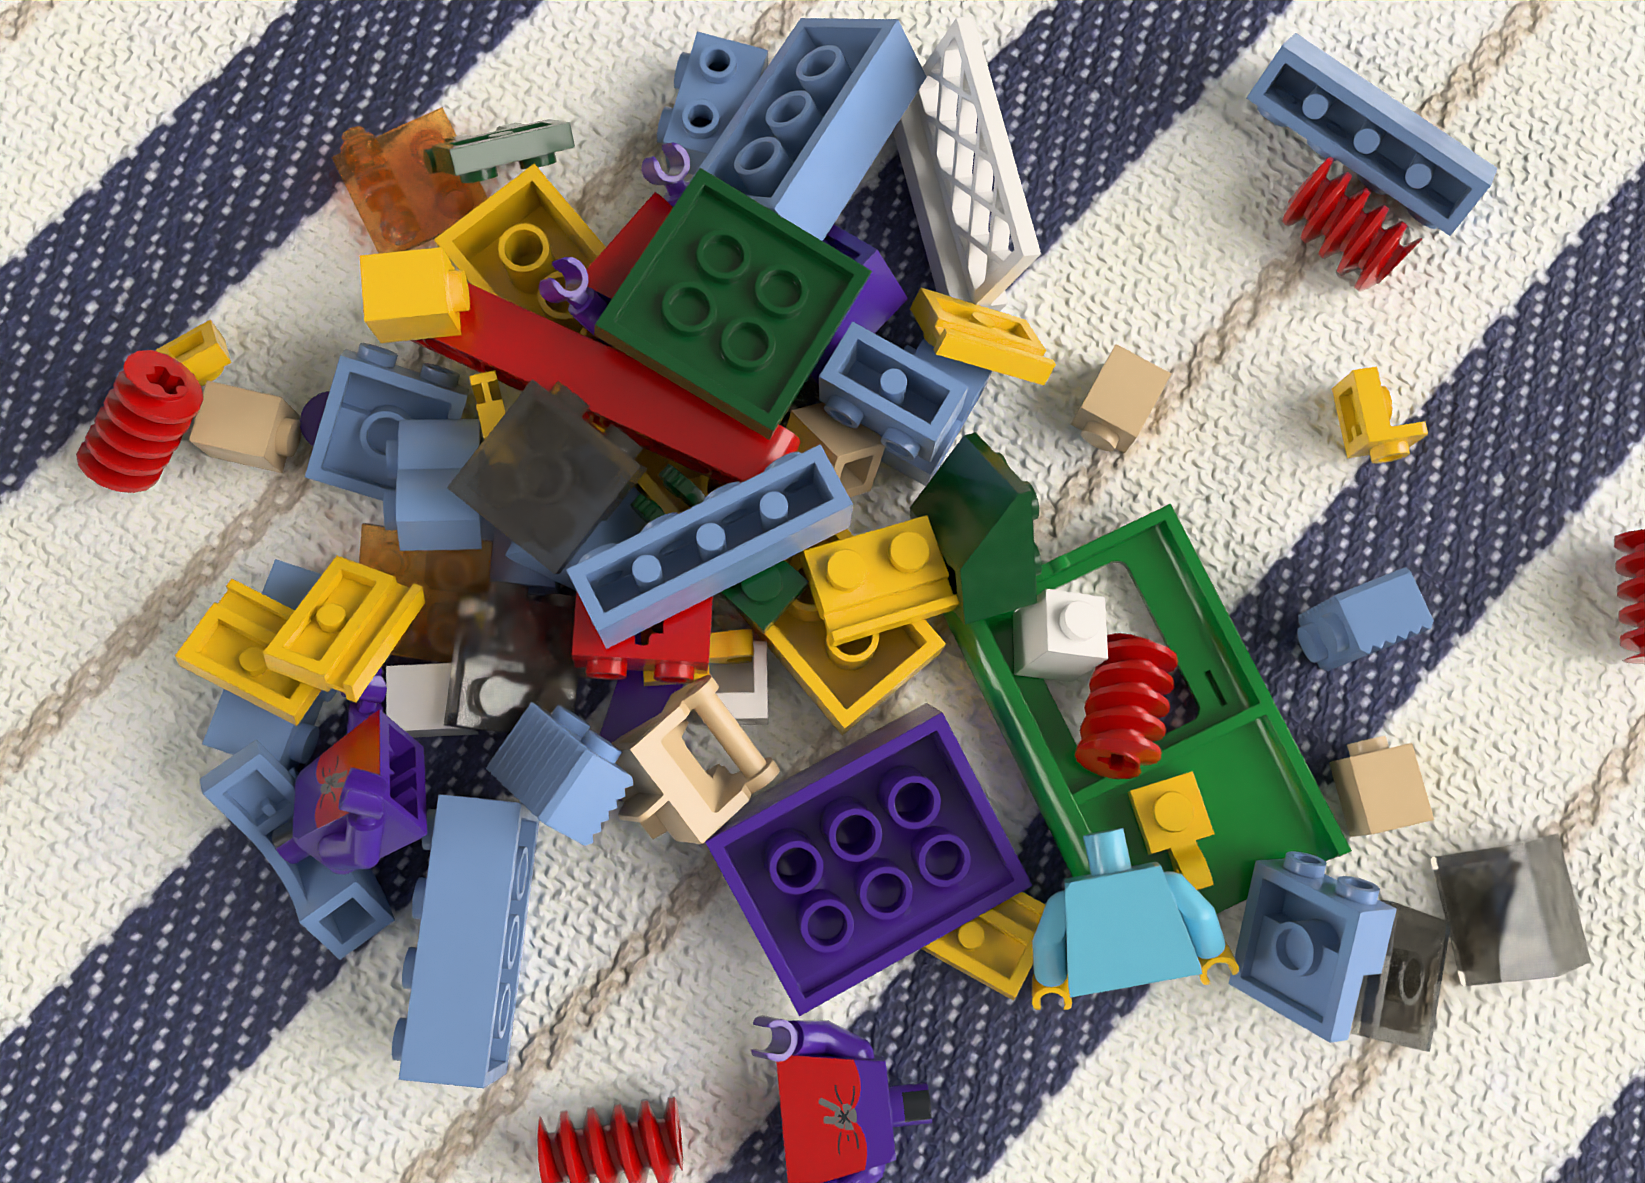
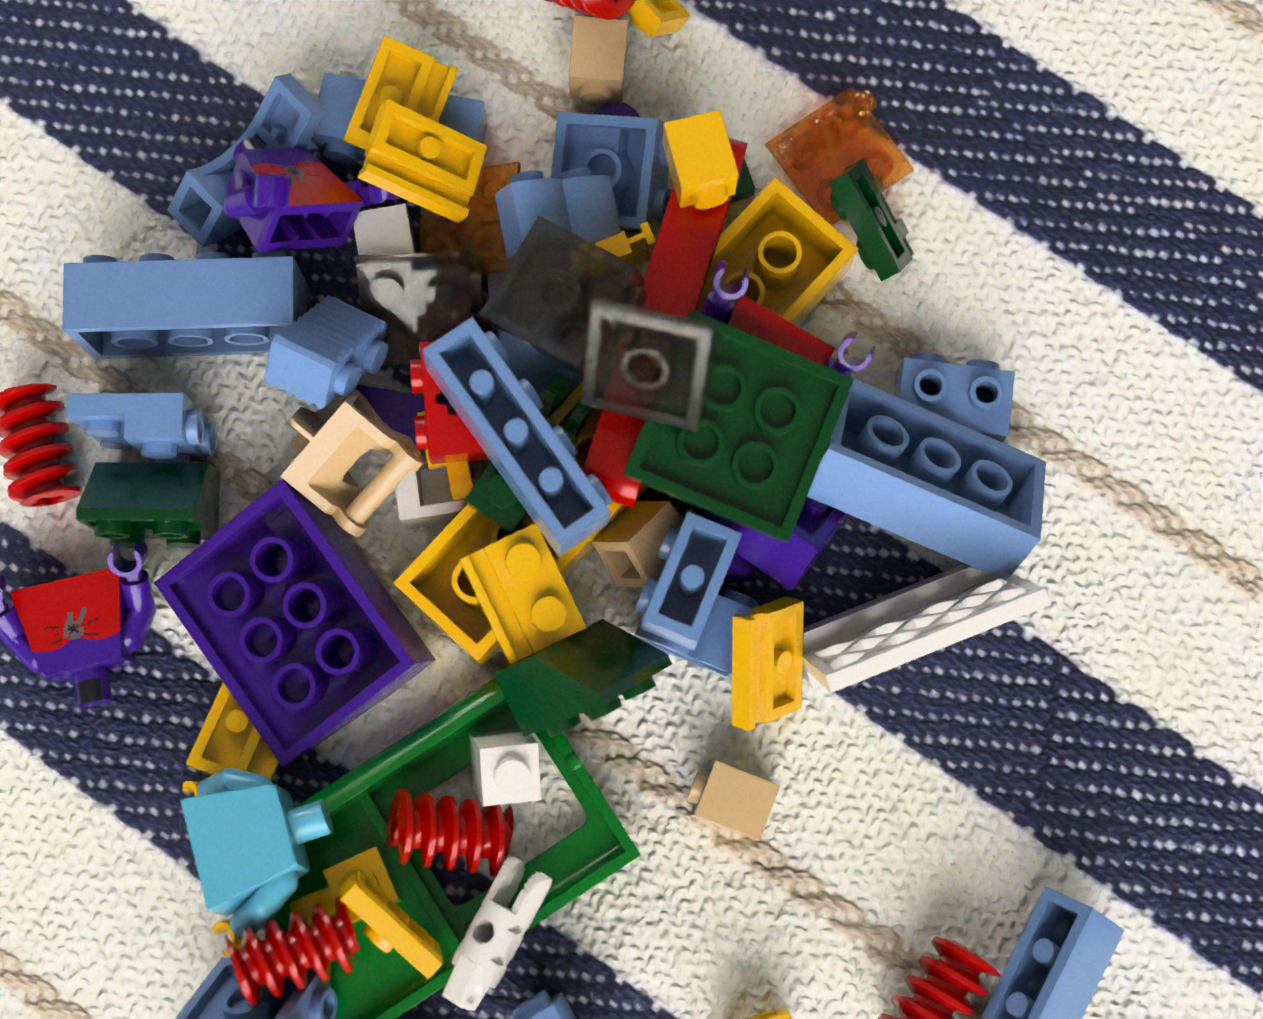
camera: 85 degrees right, 0 degrees up
(614, 989) = (156, 424): none -> medium blue plate
(658, 373) = (648, 364): none -> clear smoke slope
(698, 1010) = (151, 502): none -> dark green slope
(1227, 777) = (389, 925): none -> yellow plate
(1250, 883) = (293, 951): none -> red piece
(1268, 688) = (495, 934): none -> white hinge

